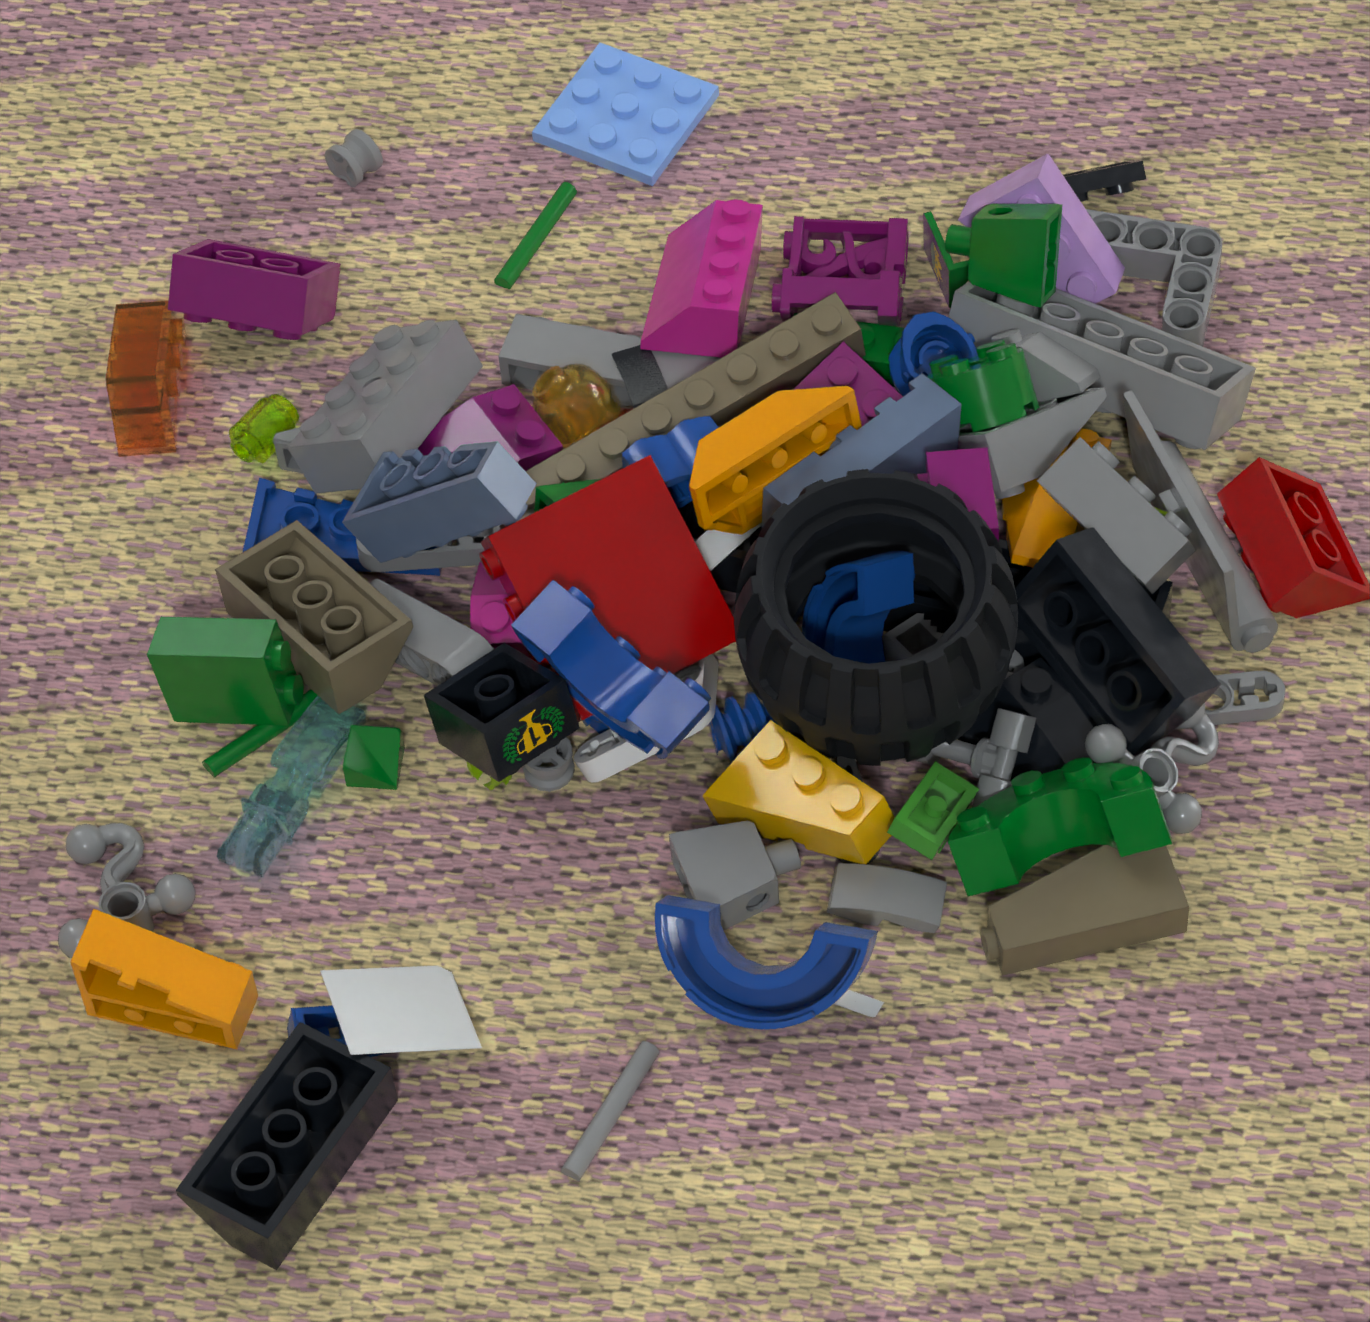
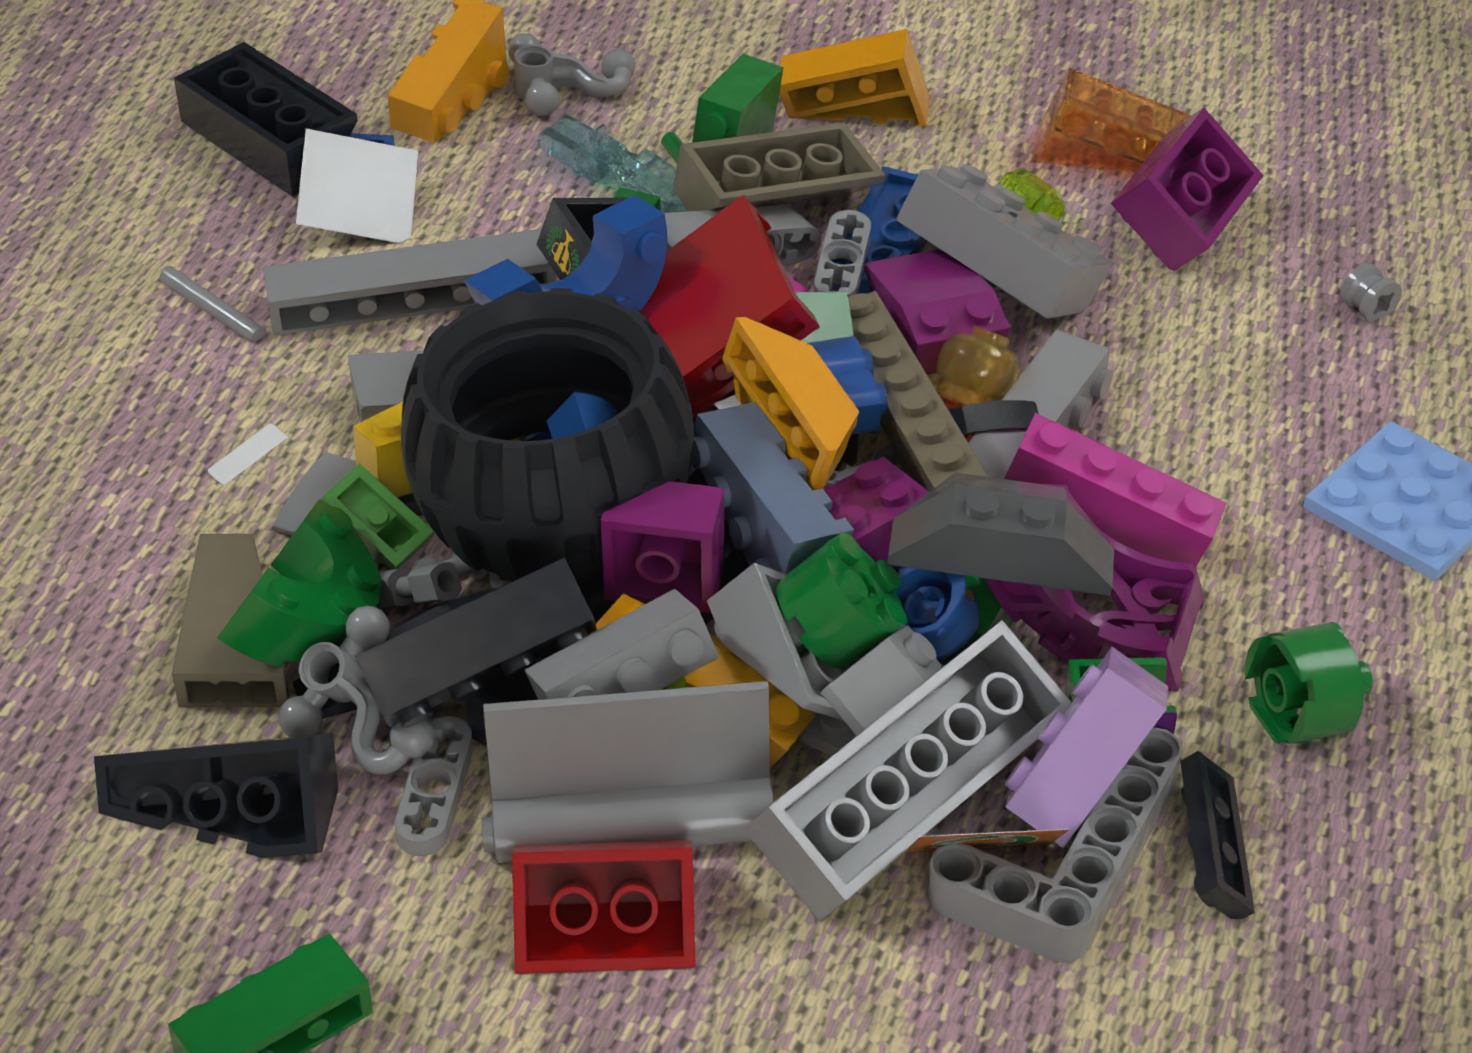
camera: 100 degrees right, 10 degrees down
(95, 601) = (857, 79): none -> light orange wedge
(437, 498) = (828, 200): sand blue wedge -> none
(535, 235) = (1245, 409): green bar -> none
(541, 921) = (392, 281): none -> light grey brick
(747, 991) = (272, 362): blue brick -> none
(881, 288) = (1004, 534): none -> dark grey wedge
(906, 125) = (1308, 671): none -> green brick
(1011, 250) = (1059, 656): green torso -> none
(1163, 284) = (988, 840): none -> orange sticker
(1272, 811) = (255, 791): none -> black wedge

